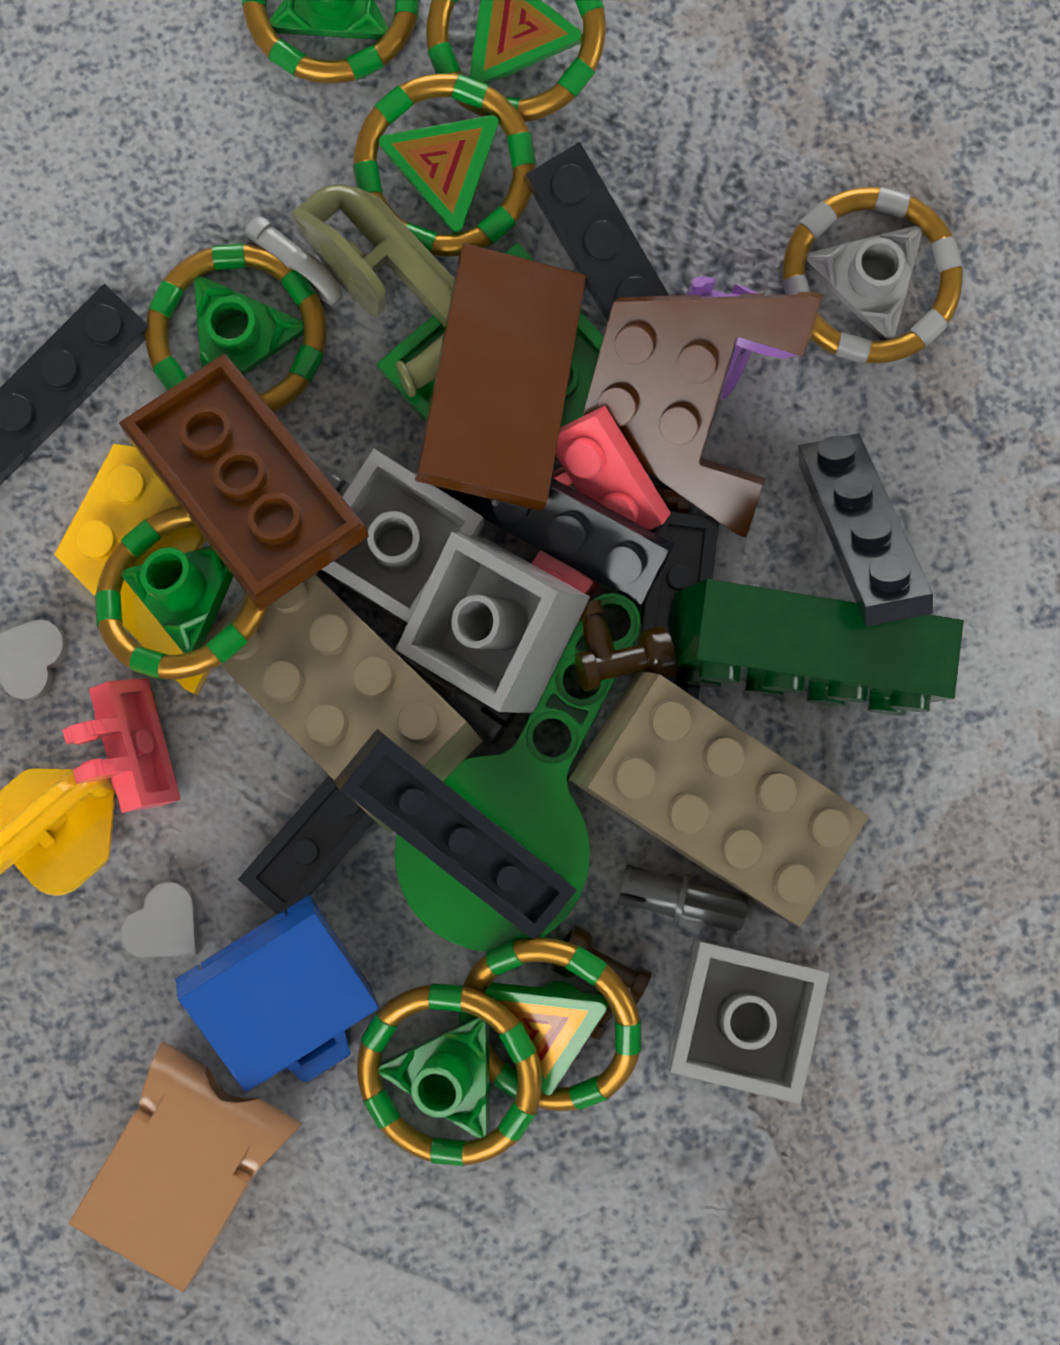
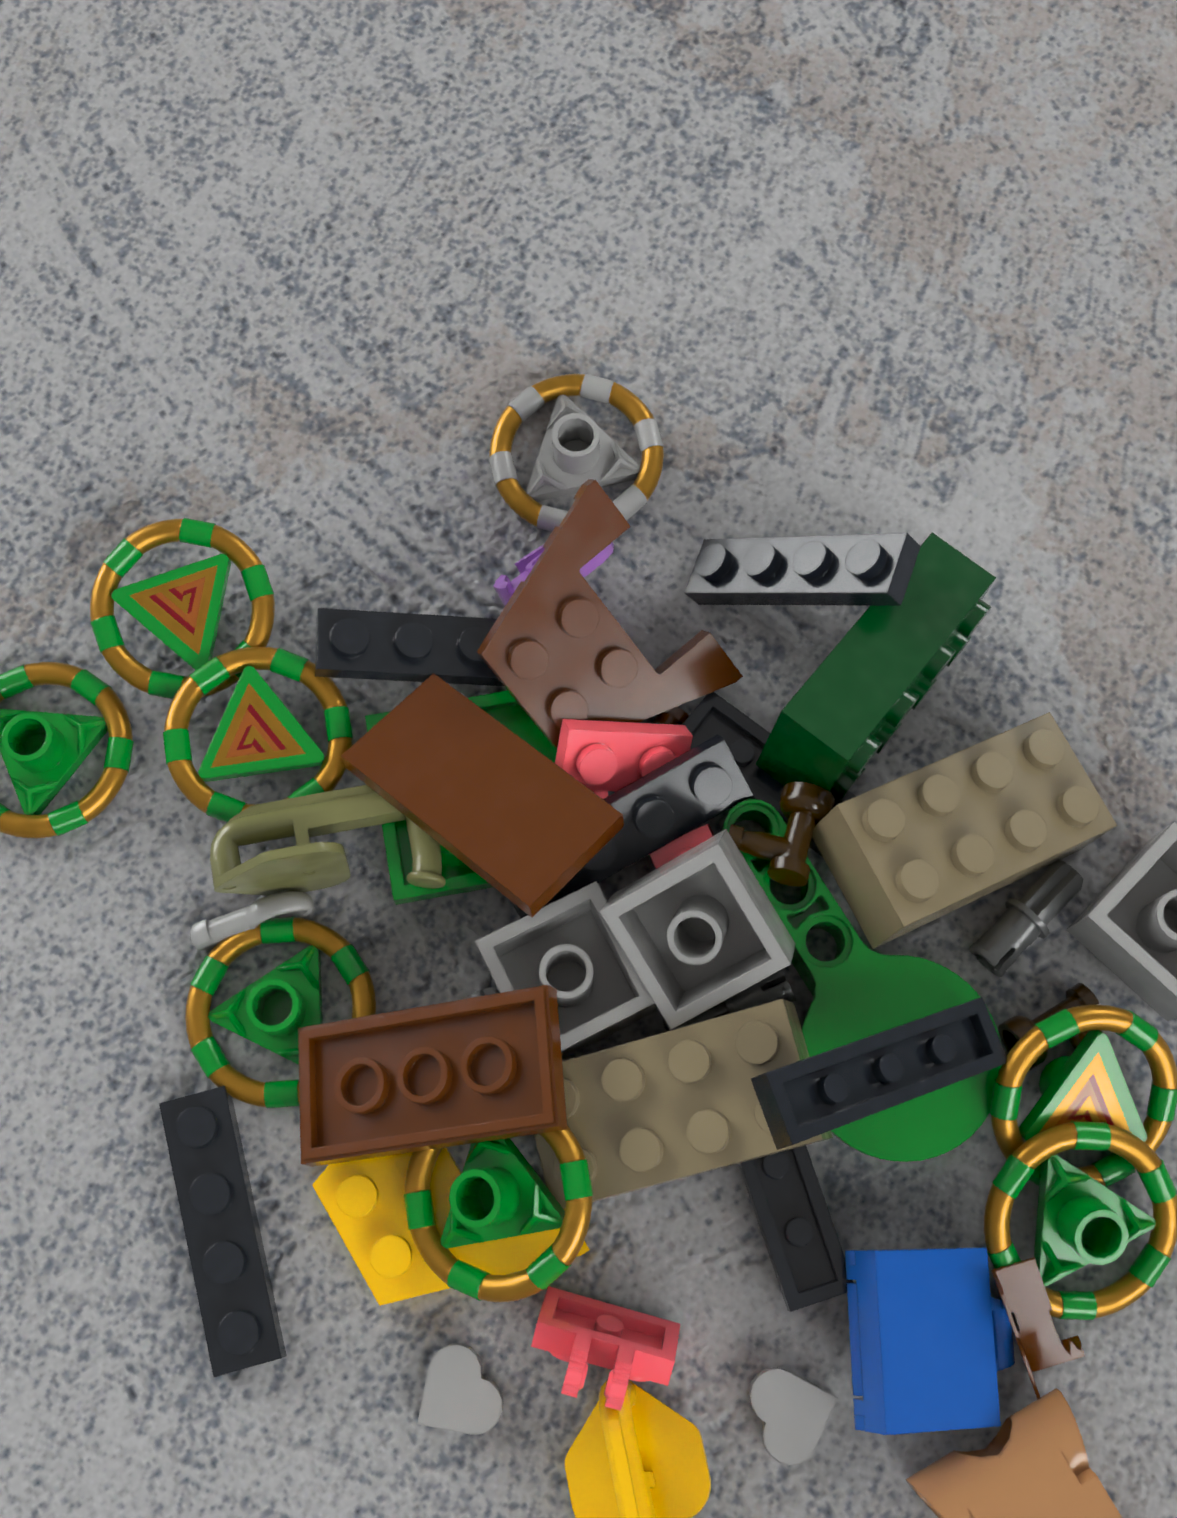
camera: 55 degrees left, 10 degrees down
(340, 1086) = (1036, 1337): none -> piece

